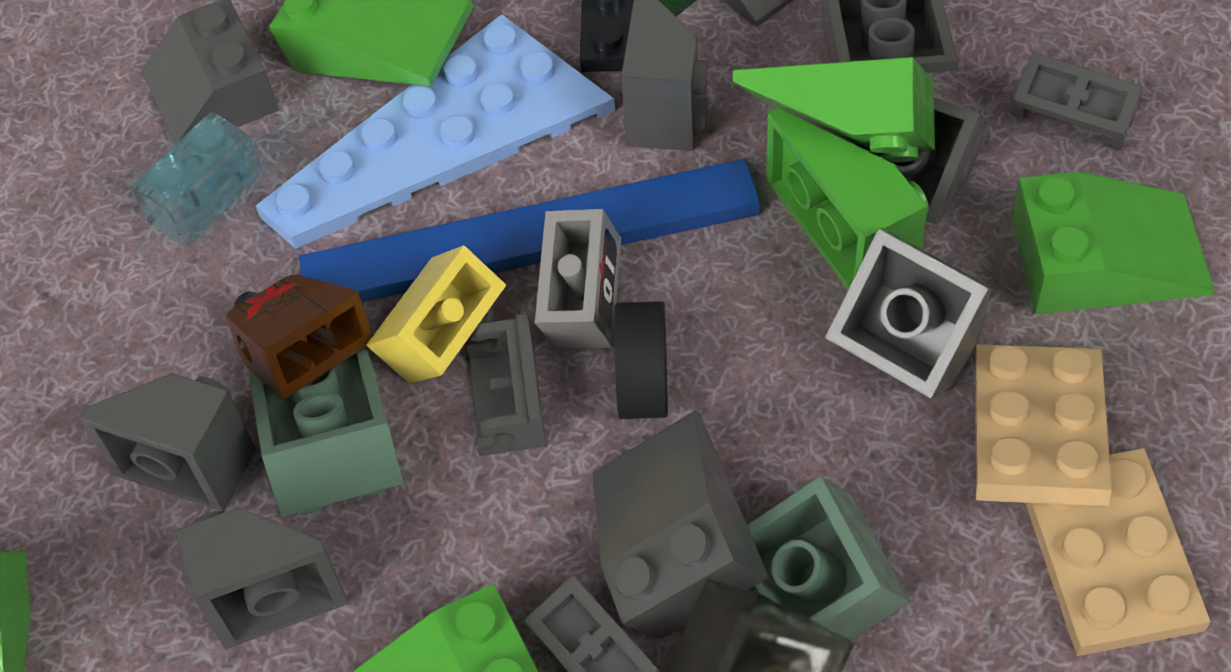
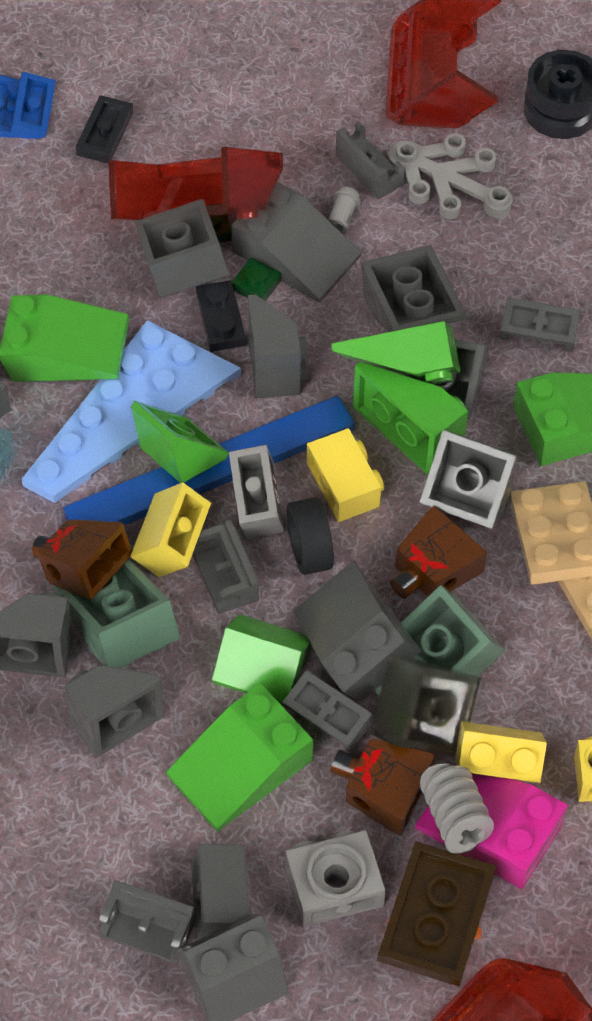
camera: 20 degrees left, 0 degrees up
(485, 186) = (175, 442): none -> bright green slope
(518, 536) = (262, 654): none -> slope
(724, 276) = (344, 474): none -> light yellow brick
(834, 428) = (436, 556): none -> reddish brown torso

